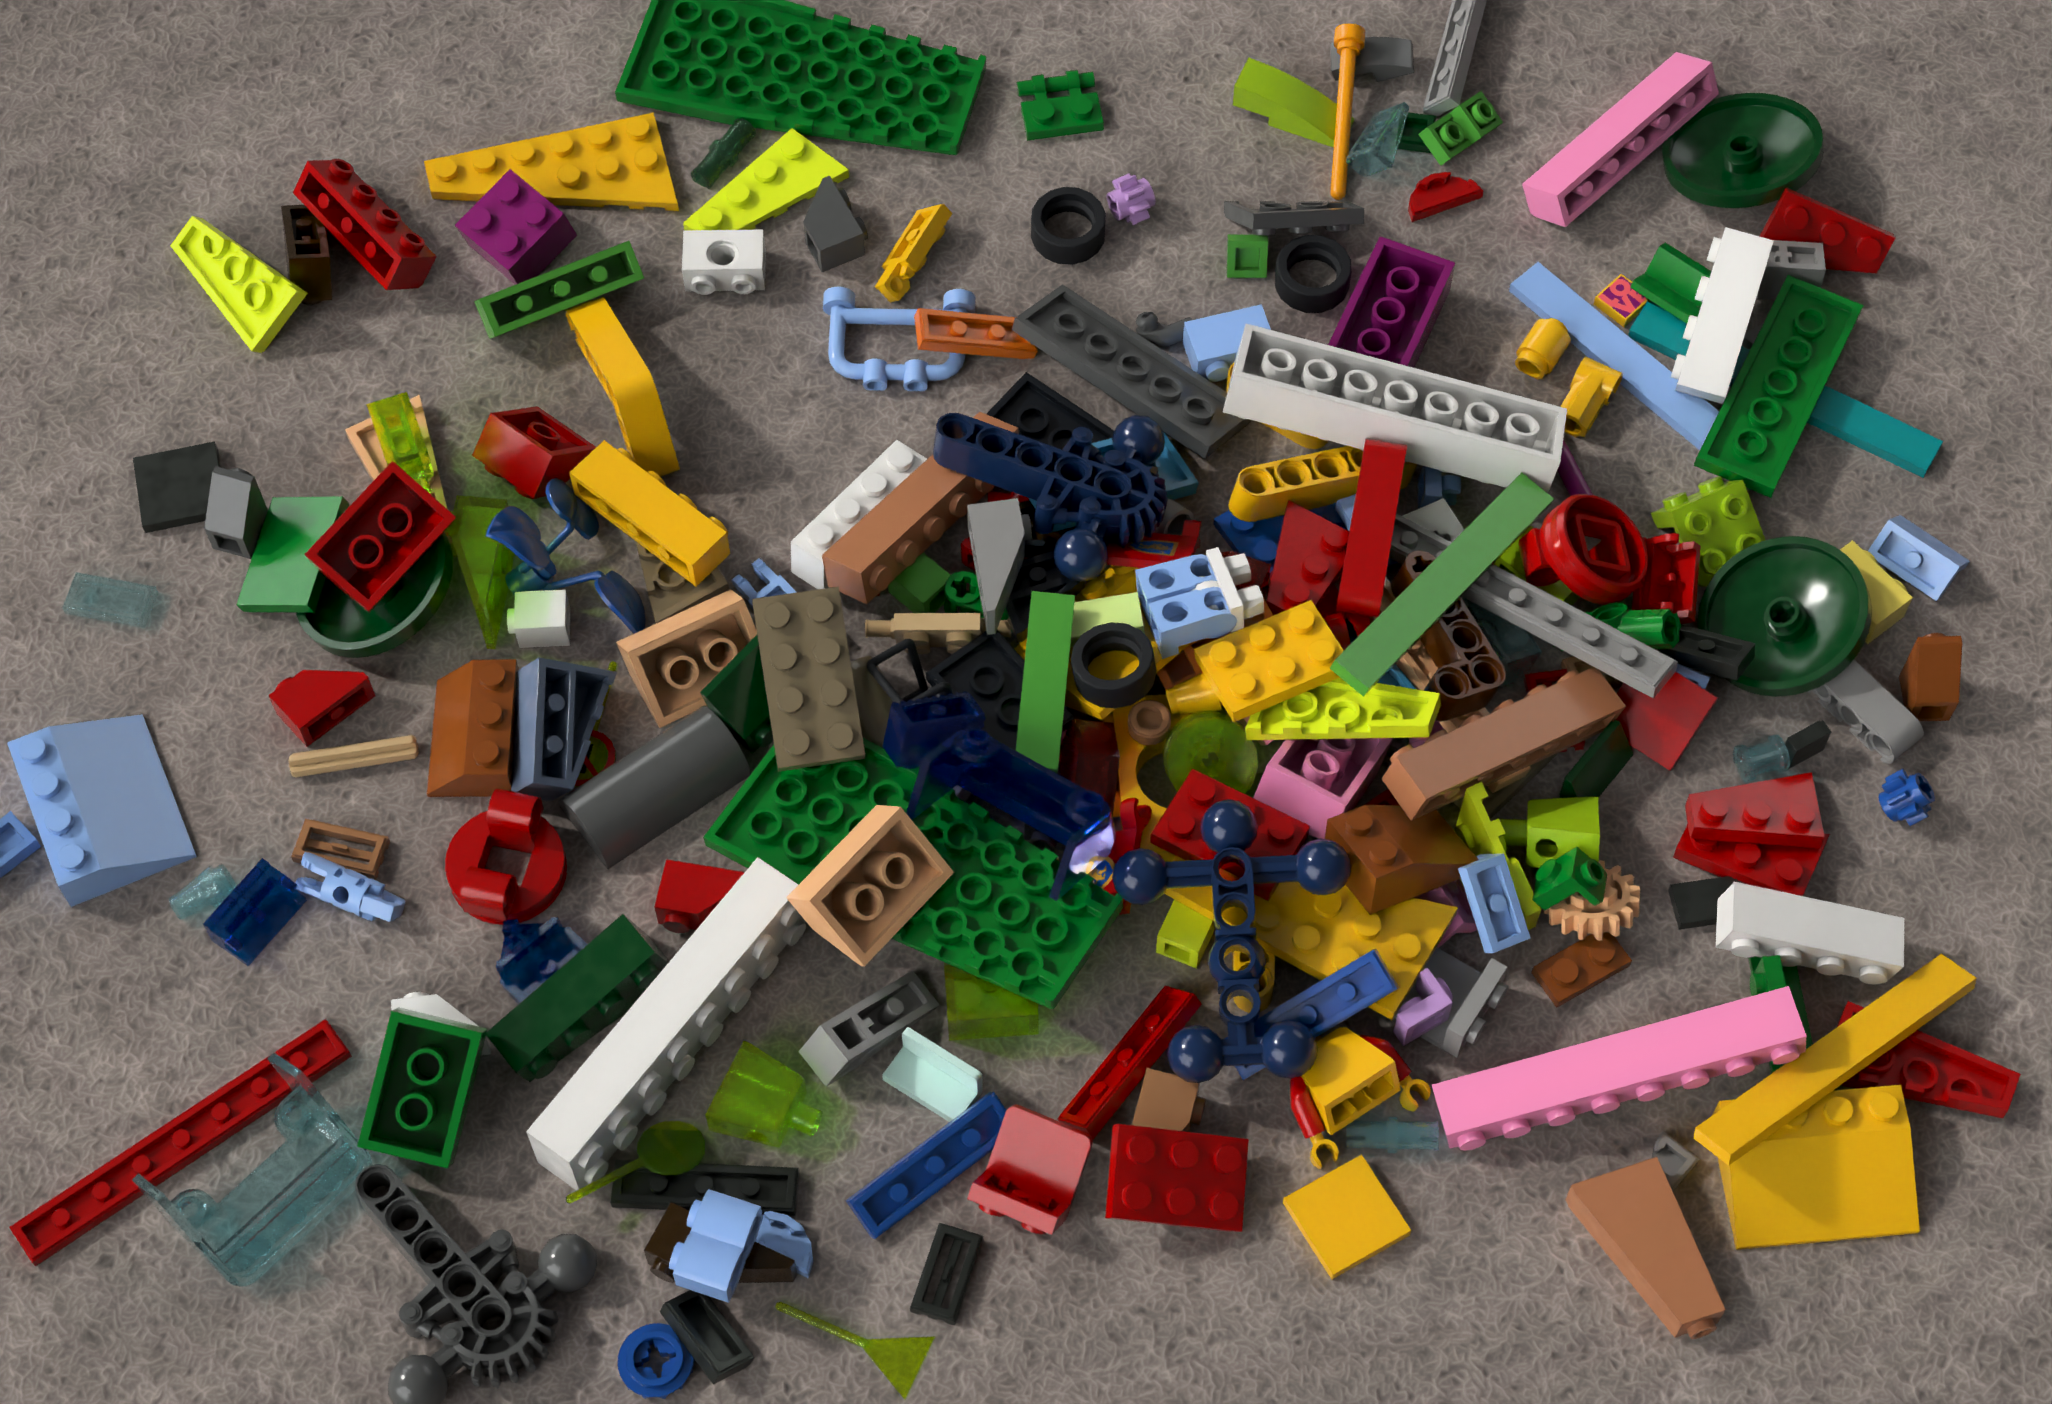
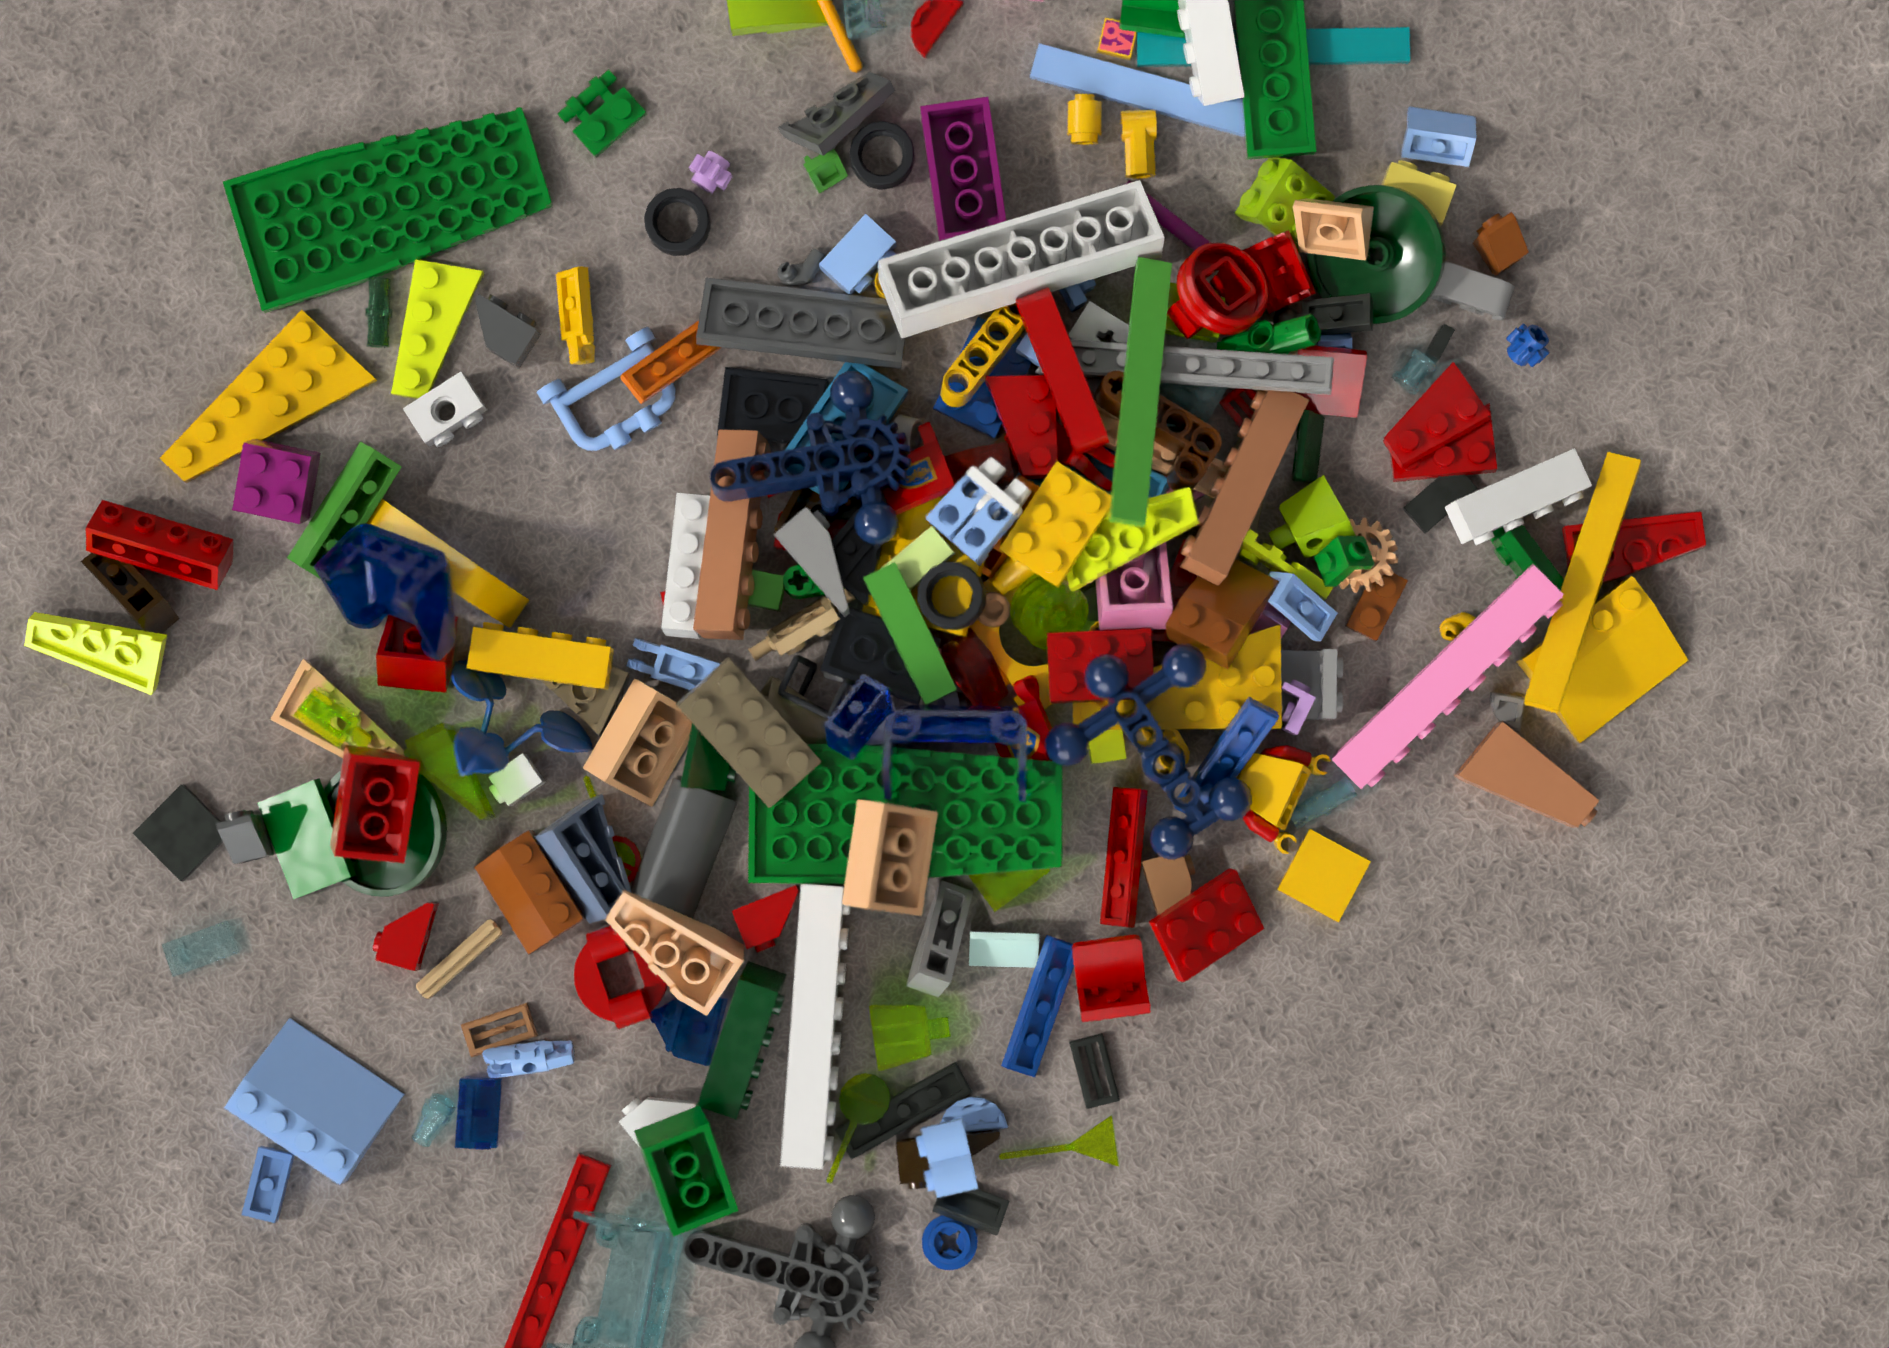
camera: 30 degrees left, 25 degrees up
(550, 357) = (386, 574): none -> clear blue windscreen
(580, 858) = (684, 952): none -> light nougat wedge
(1751, 557) = (1333, 228): none -> light nougat slope

